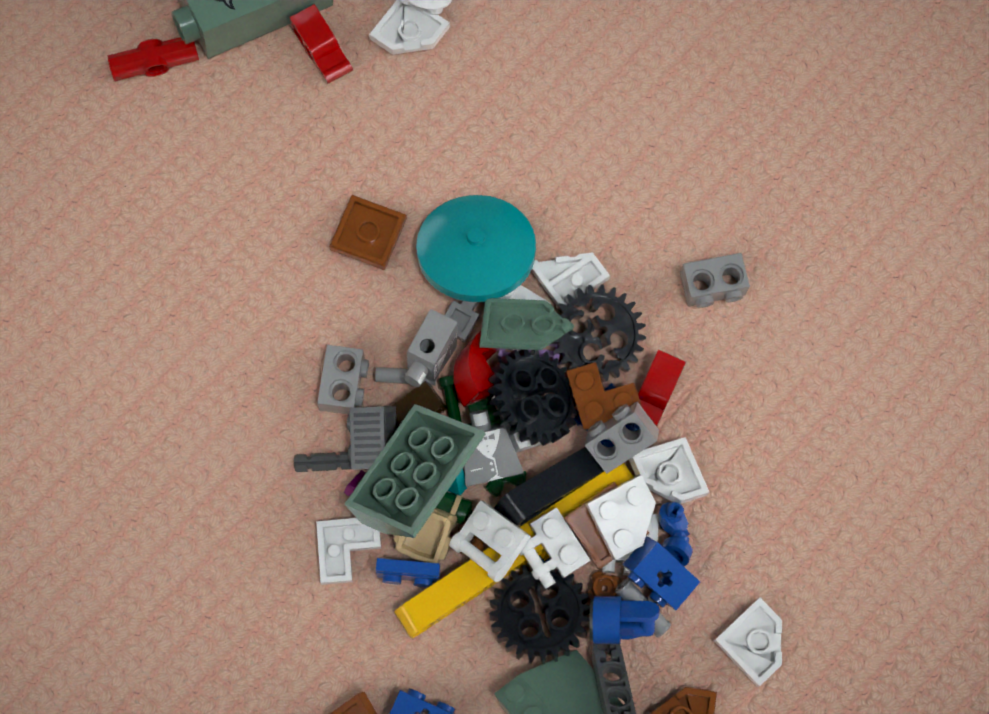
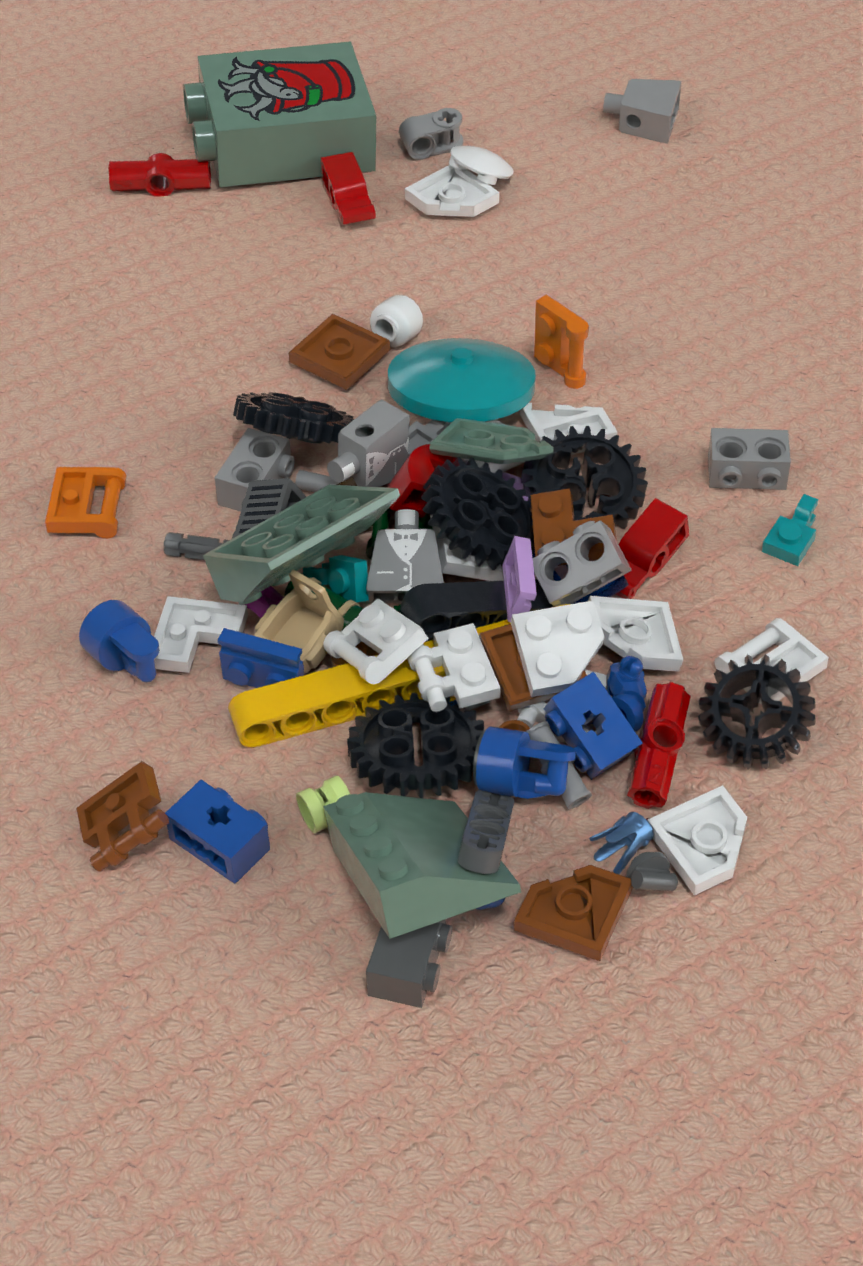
camera: 20 degrees right, 25 degrees down
(208, 438) = (73, 498): none -> orange plate
(294, 570) = (120, 639): none -> blue piece
(361, 328) = (291, 416): none -> black gear
(405, 191) = (397, 320): none -> white head
(494, 674) = (312, 802): none -> yellowish green wheel
(539, 192) = (560, 340): none -> orange plate
(581, 463) = (519, 577): none -> lavender tile
(702, 657) = (629, 831): none -> flat silver piece
(709, 551) = (654, 762): none -> red piece
(727, 683) = (652, 872): none -> dark grey plate
(759, 347) = (793, 537): none -> teal plate
(777, 480) = (793, 650): none -> white plate
(786, 531) = (723, 702): none -> black gear

